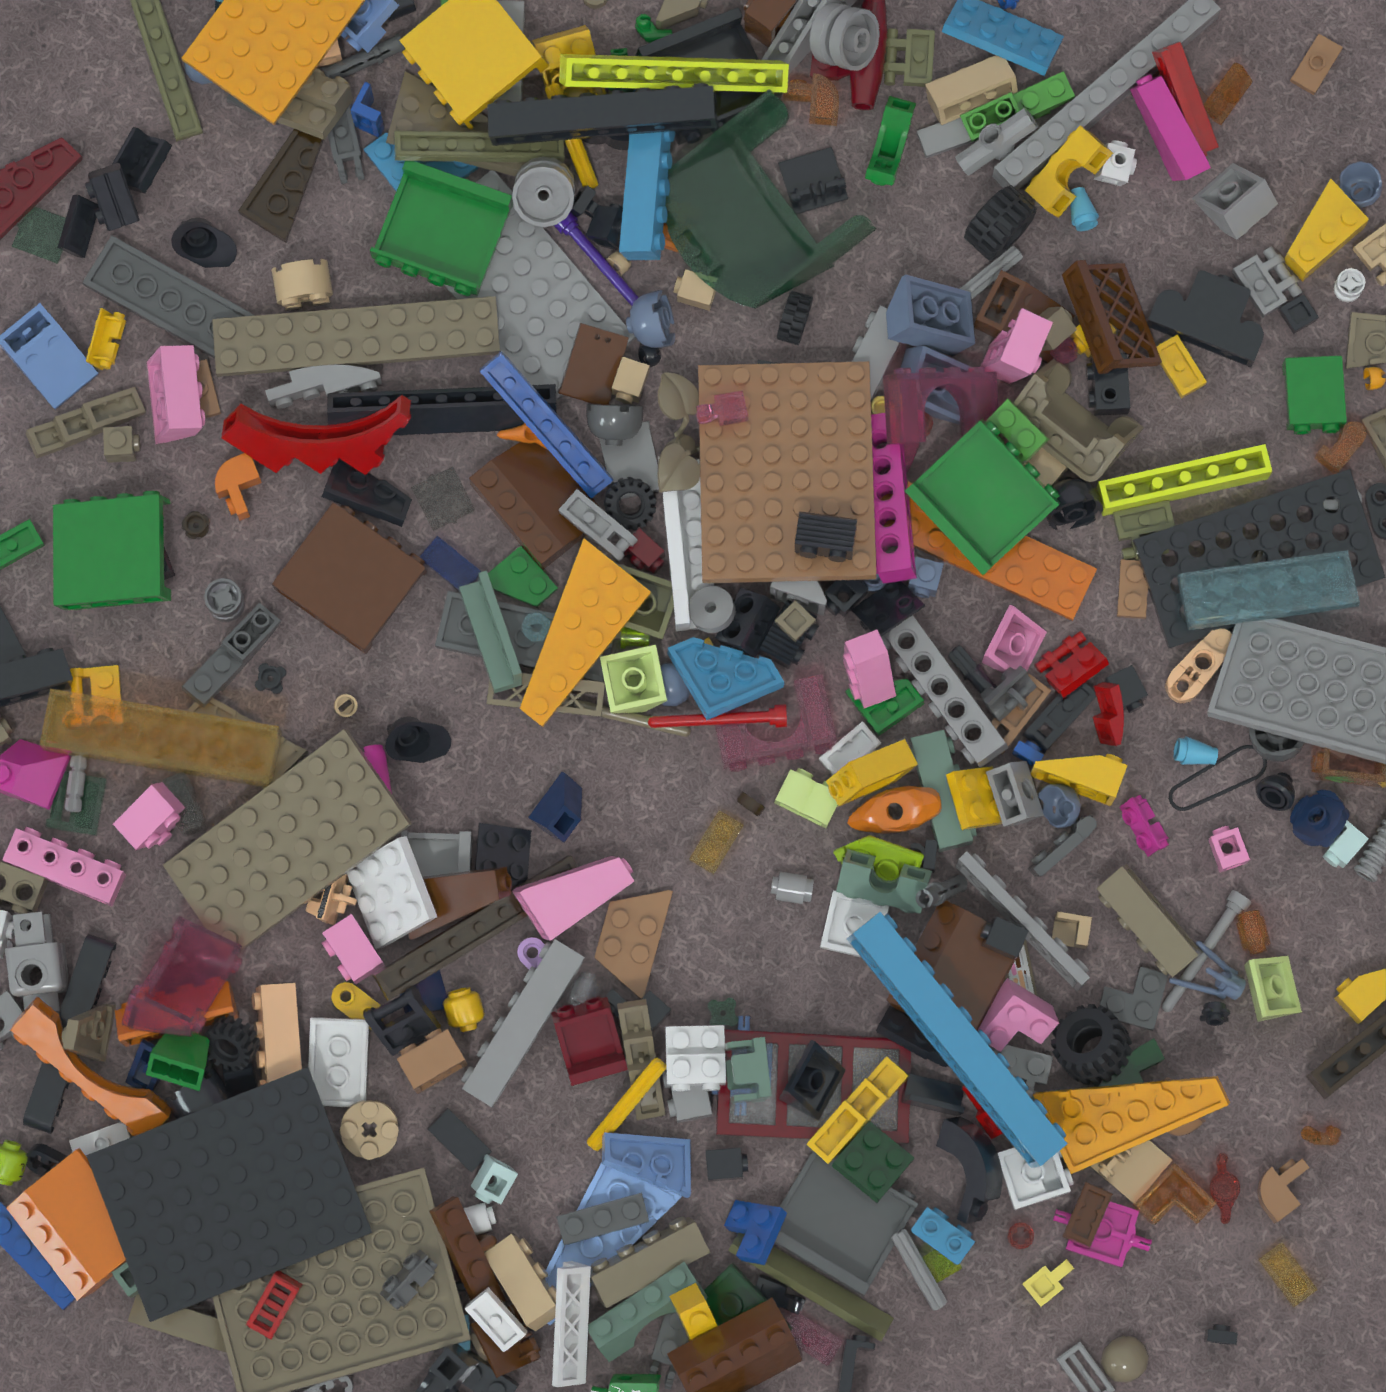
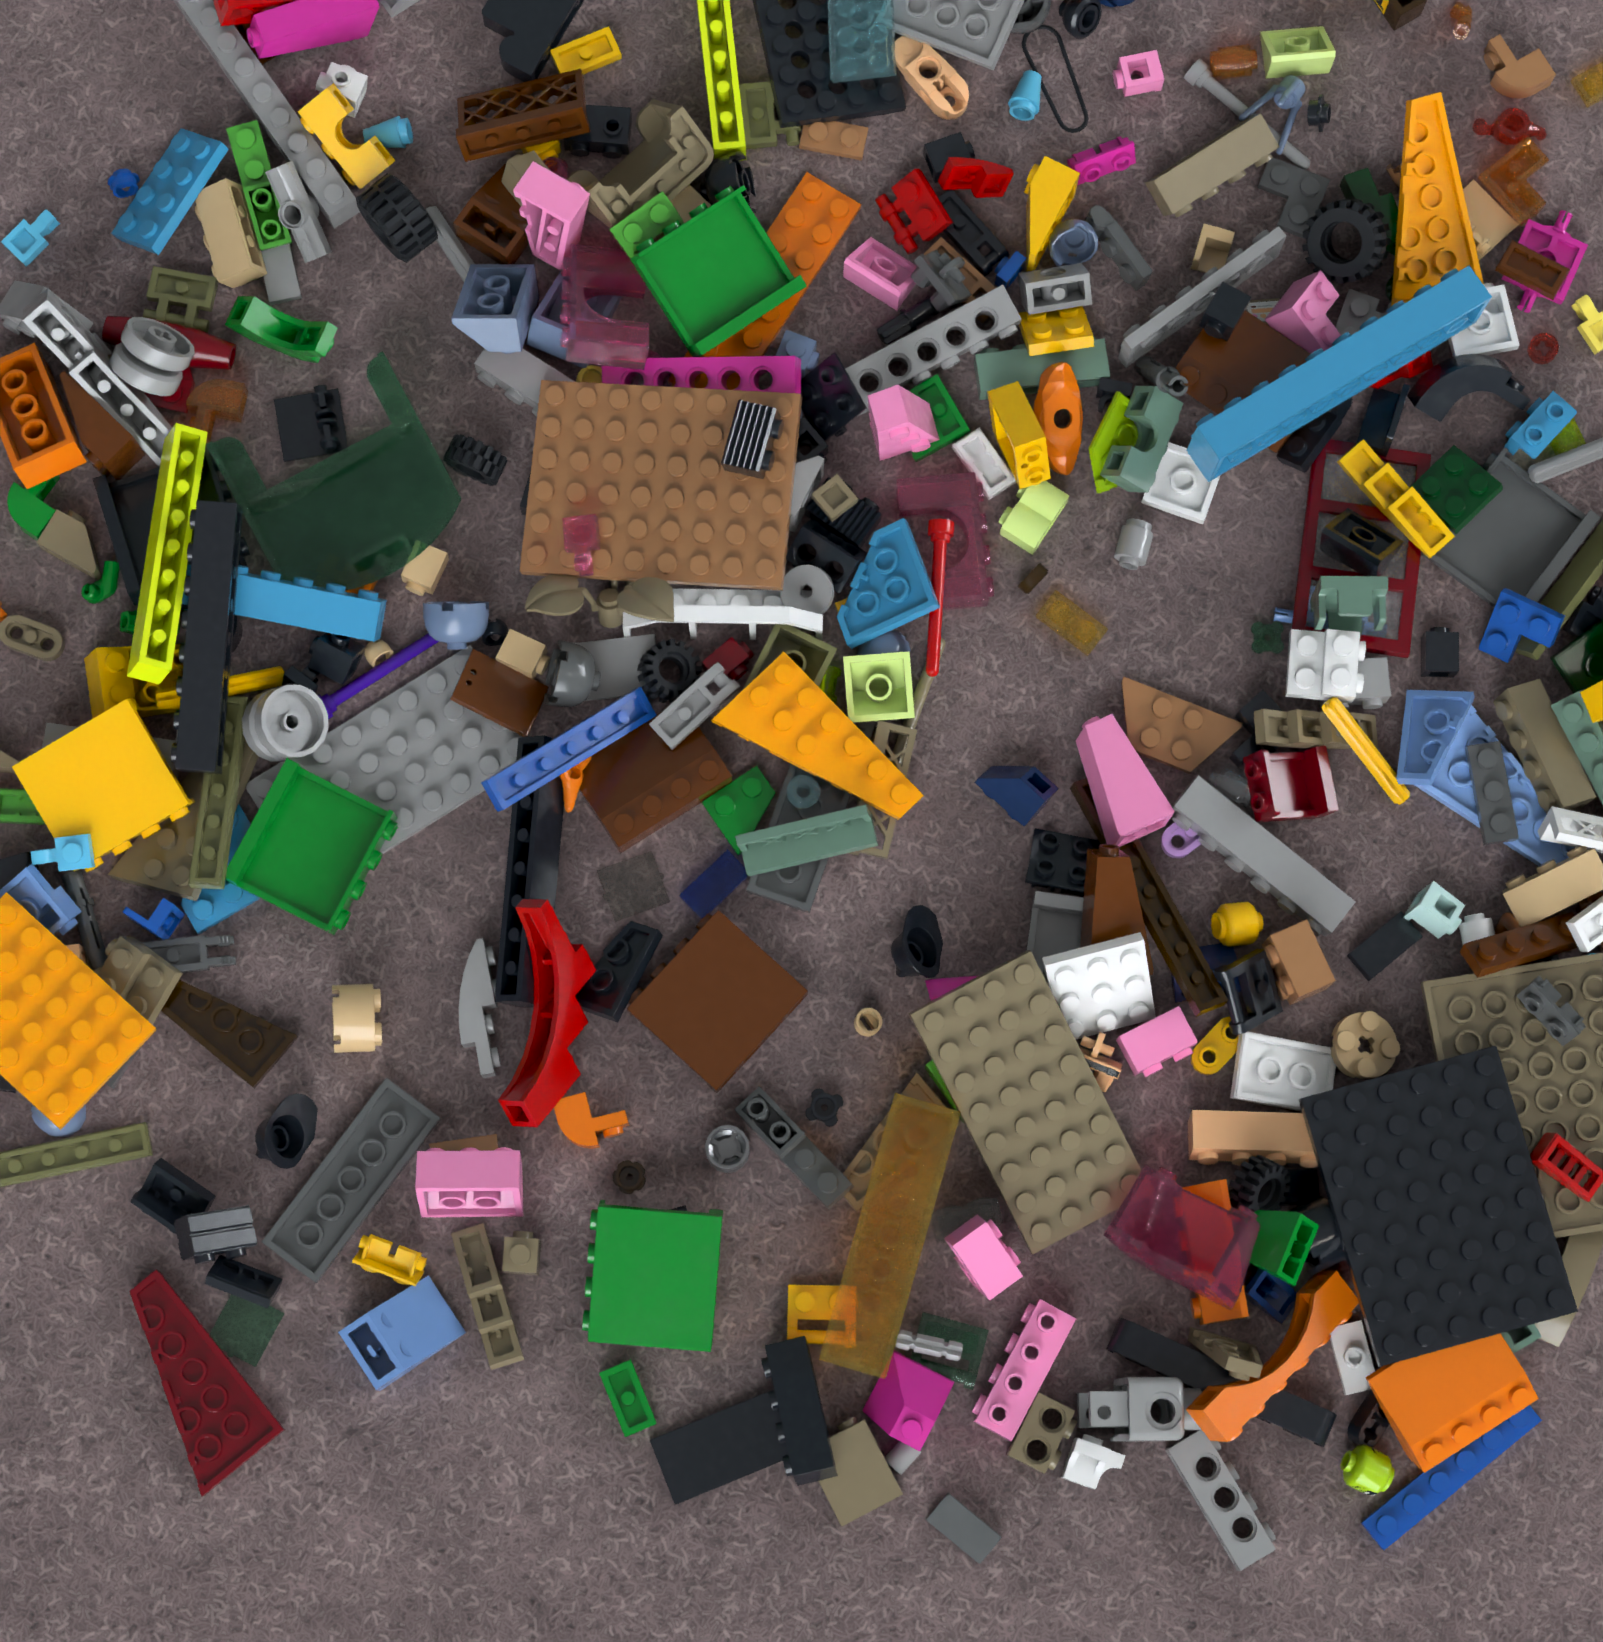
camera: 85 degrees left, 0 degrees up
(356, 336) = (428, 963): dark tan plate -> none
(413, 33) = (69, 852): none -> medium azure plate

